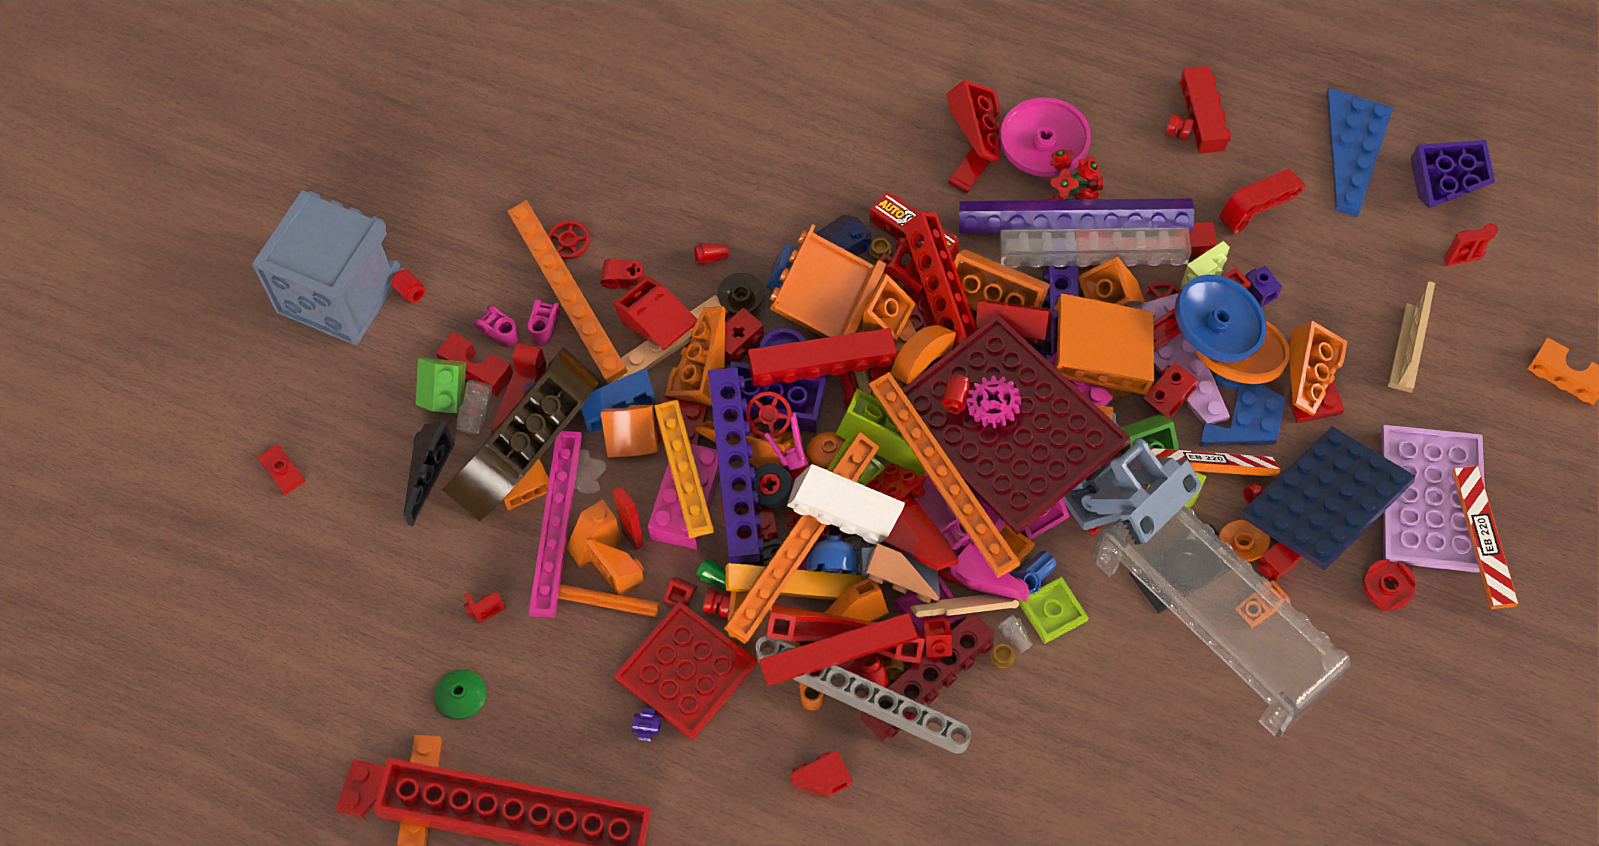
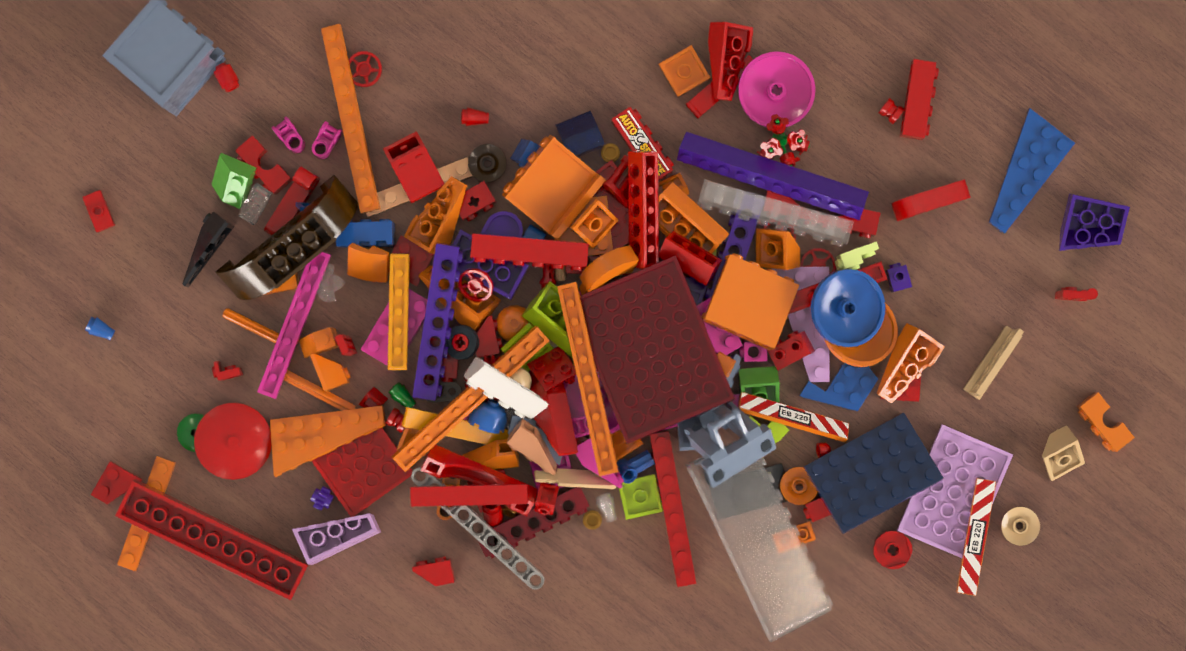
camera: 20 degrees right, 25 degrees up
(307, 600) = (99, 328): none -> blue cone
(500, 545) = (250, 325): none -> orange axle
(511, 687) = (232, 441): none -> red dish
(618, 648) = (314, 435): none -> orange wing
(621, 274) = (396, 115): red piece -> none
(677, 765) = (332, 537): none -> lavender wedge
(795, 456) = (485, 326): dark pink plant -> none
(934, 149) = (684, 71): none -> orange plate
(956, 394) = (619, 318): red brick -> none
(994, 401) = (655, 330): dark pink gear -> none
(1104, 617) = (672, 509): none -> red brick
(1132, 400) = (743, 352): none -> dark pink brick
(1536, 505) = (1029, 530): none -> tan dish
(1540, 416) = (1062, 453): none -> tan slope

